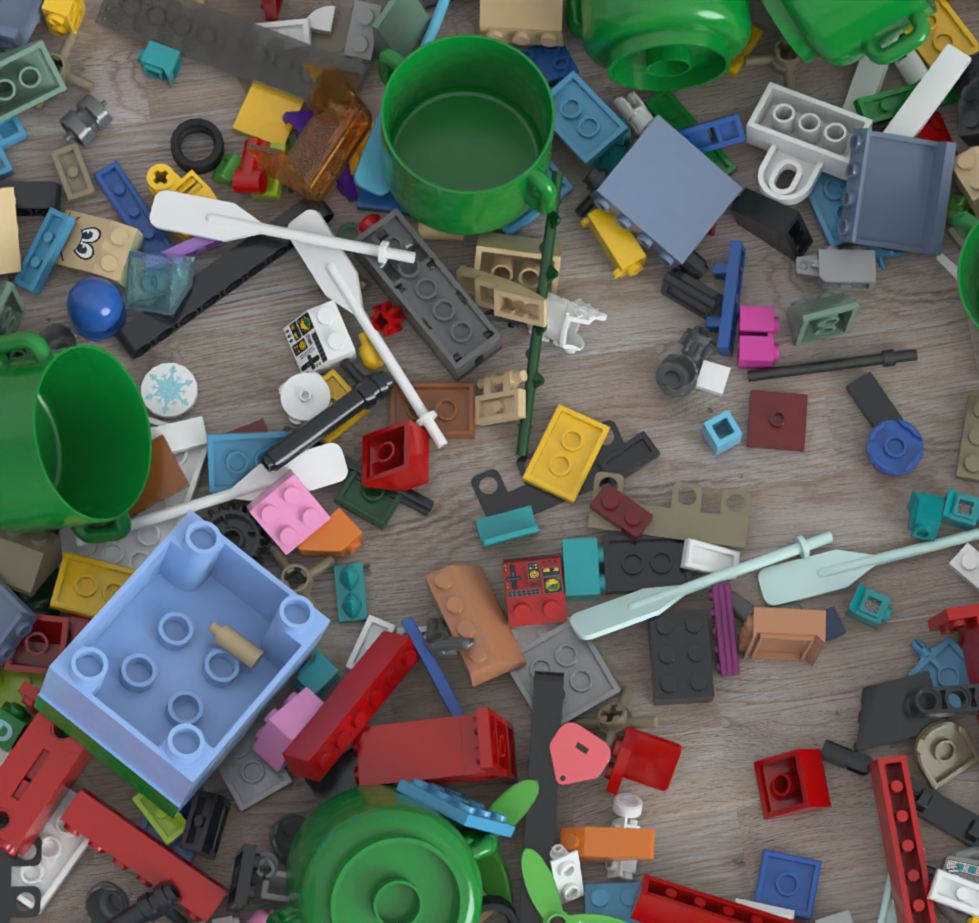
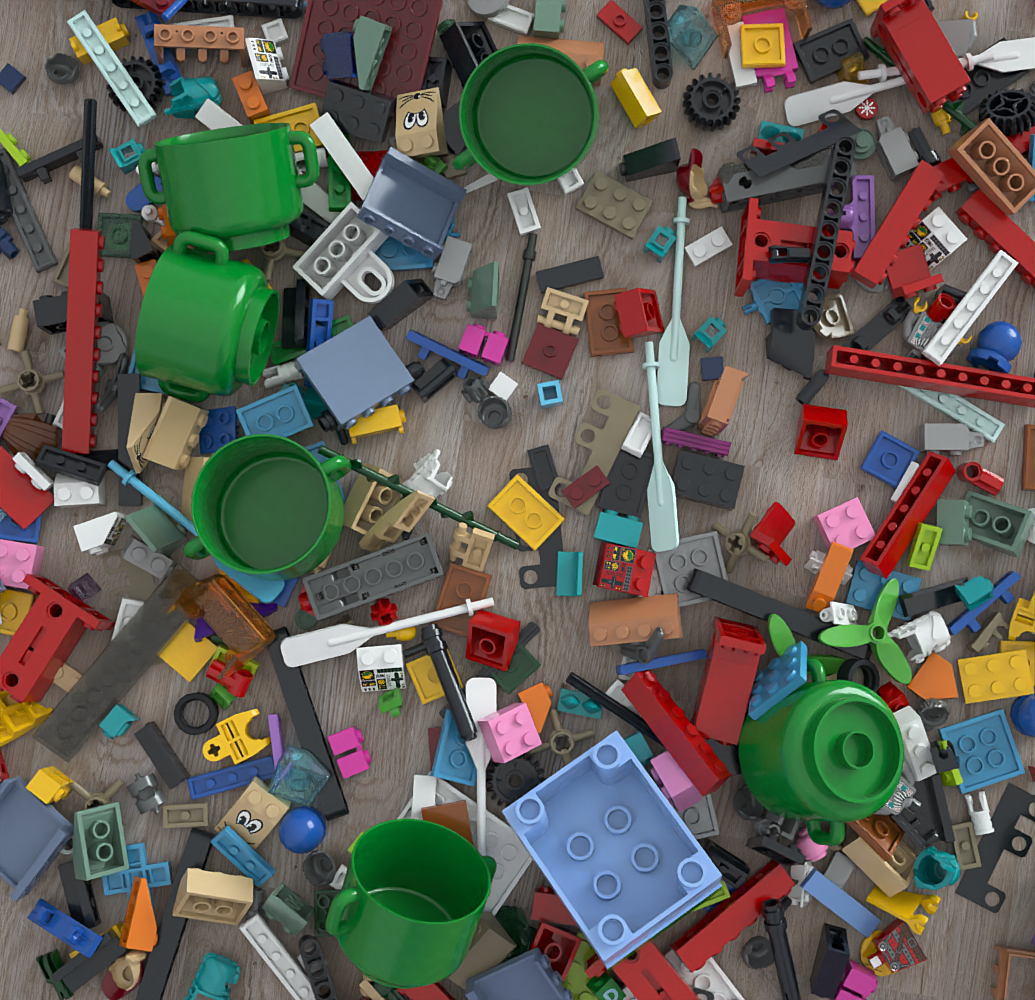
camera: 70 degrees left, 10 degrees up
(86, 584) = (522, 894): yellow tile -> none
(136, 124) = (162, 755): none -> black panel
(169, 390) = (382, 792): white tile -> none
(217, 326) = (353, 762): none -> dark pink piece
(229, 222) = (270, 708): white piece -> none
(236, 644) = (606, 803): tan cylinder -> none
(281, 365) = (391, 702): none -> bright green tile
(304, 397) = (423, 692): white piece -> none
(322, 20) = (124, 586): white tile -> none
(362, 619) = (611, 704): none -> black axle
(573, 762) = (765, 582): coral piece -> none
(627, 805) = (800, 553): white tile -> none
(683, 849) = (845, 525): none -> bright pink brick
(712, 105) = (295, 315): none -> black panel
(826, 82) = (307, 228): none -> black hinge
(837, 481) = (603, 324): none -> dark orange tile
(841, 418) = (563, 304): none -> tan plate
(862, 510) = (638, 313): none -> red slope
(894, 447) = (599, 274): blue tile -> none
(925, 515) = (657, 270): teal window -> none
(940, 334) = (524, 211): none -> white plate

